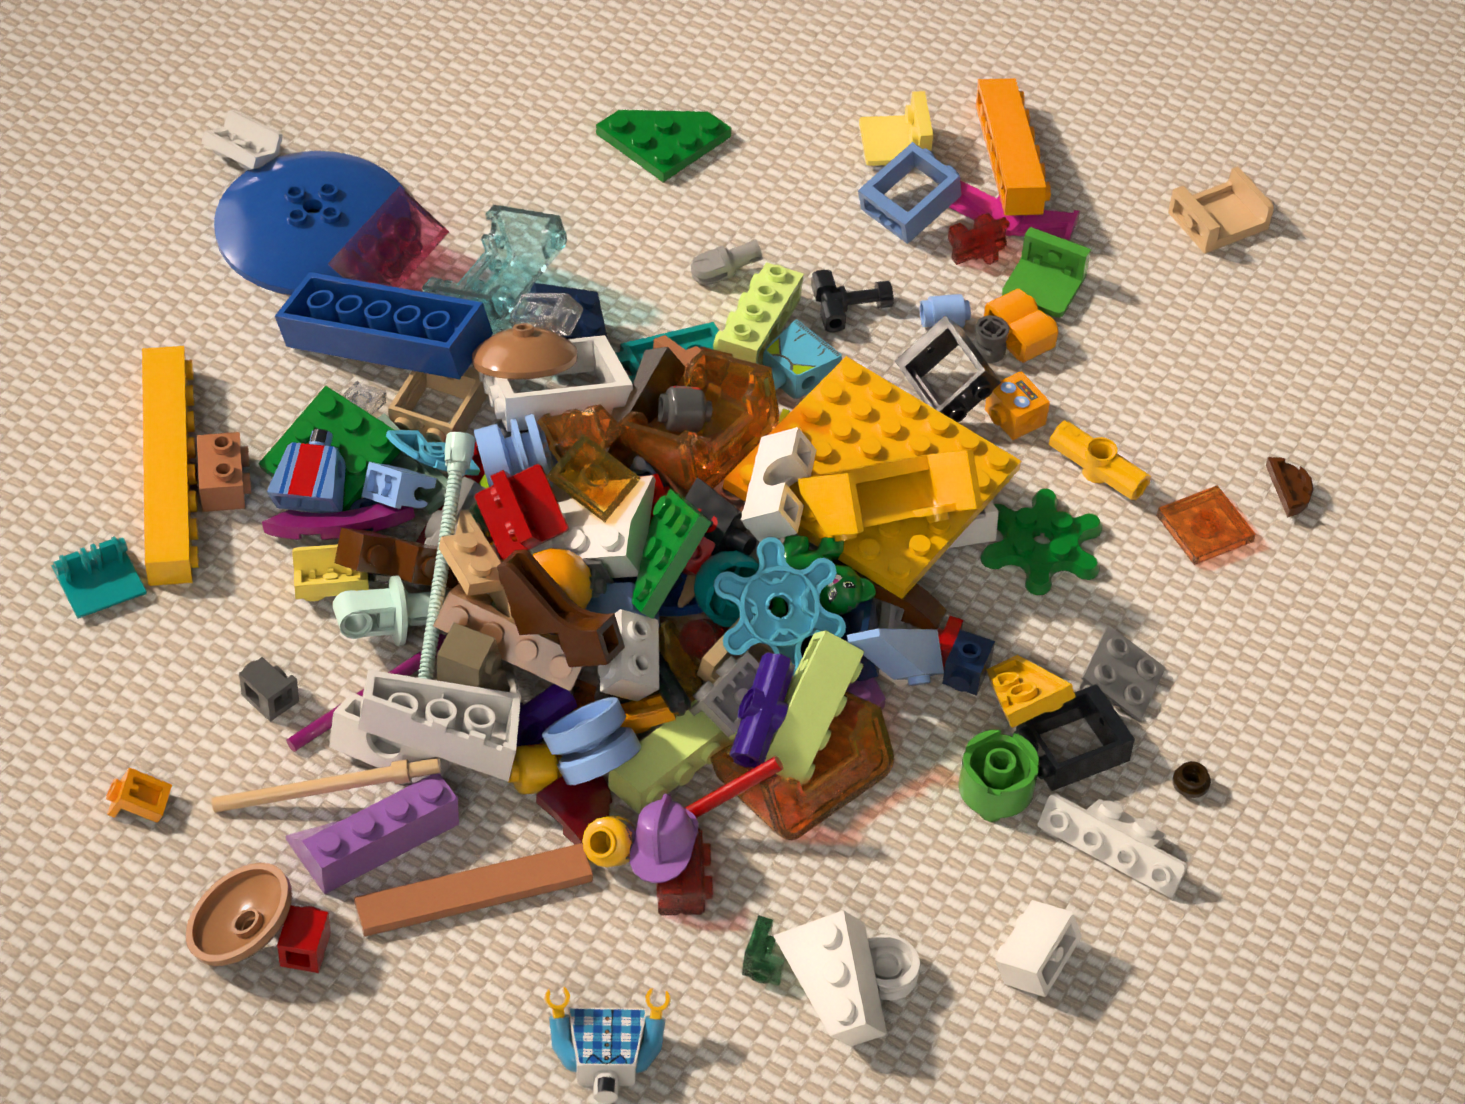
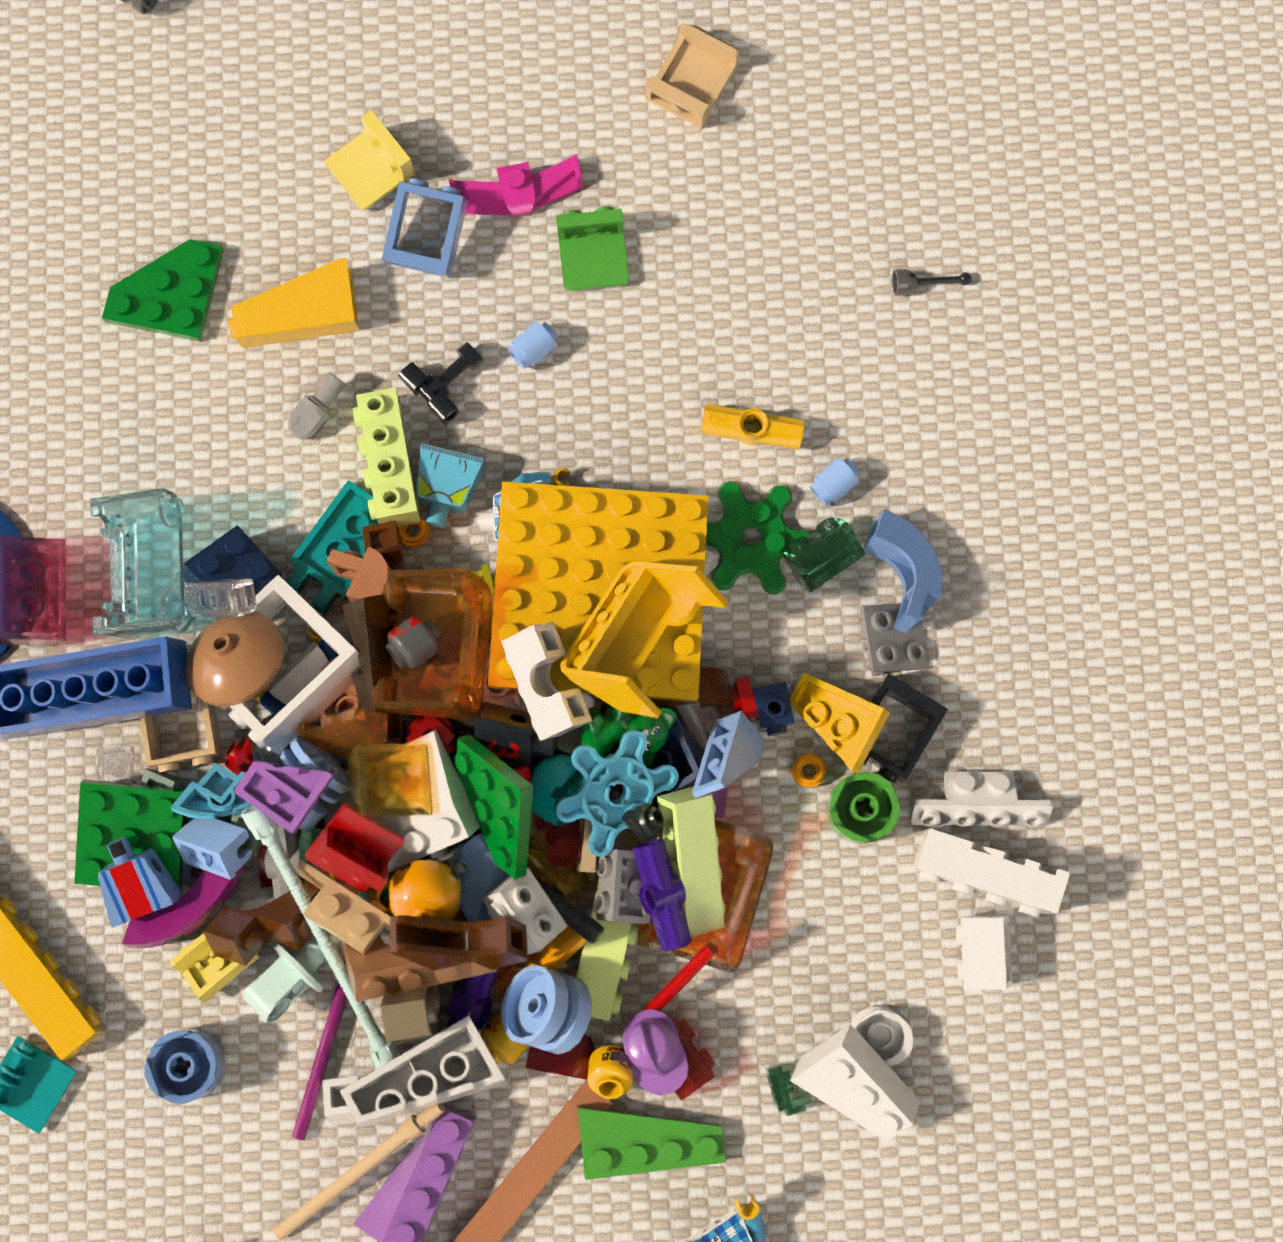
camera: 30 degrees left, 30 degrees up
(221, 471) = (51, 914): nougat brick -> none
(241, 627) = (171, 1051): none -> medium blue brick
(268, 688) = (243, 1102): dark grey brick -> none
(497, 428) = (283, 791): none -> medium lavender wing
(594, 917) = (635, 1144): none -> bright green wing
(762, 194) = (299, 309): none -> yellow slope
(789, 641) = (645, 822): none -> pearl dark grey plate
(920, 360) = (568, 443): black window -> none
(966, 722) = (816, 762): none -> light orange plate
(982, 241) = (505, 253): clear red hips -> none
(991, 338) = (591, 357): dark grey wheel -> none
(1012, 147) = (480, 122): light orange brick -> none
(1017, 406) = (652, 411): light orange head -> none
(1029, 328) = (603, 317): light orange brick -> none
(1099, 574) = (823, 553): none -> clear green brick
(1105, 906) = (990, 873): none -> white wedge
(1148, 535) = (835, 481): none -> light blue brick
(1179, 616) = (913, 559): none -> medium blue arch
(1193, 772) = (1012, 703): dark brown plate -> none
(1205, 525) = (870, 435): clear orange plate -> none
(1219, 681) = (966, 592): none -> clear slope
(1291, 484) = (915, 350): reddish brown plate -> none
(1318, 434) = (905, 281): none -> hinge

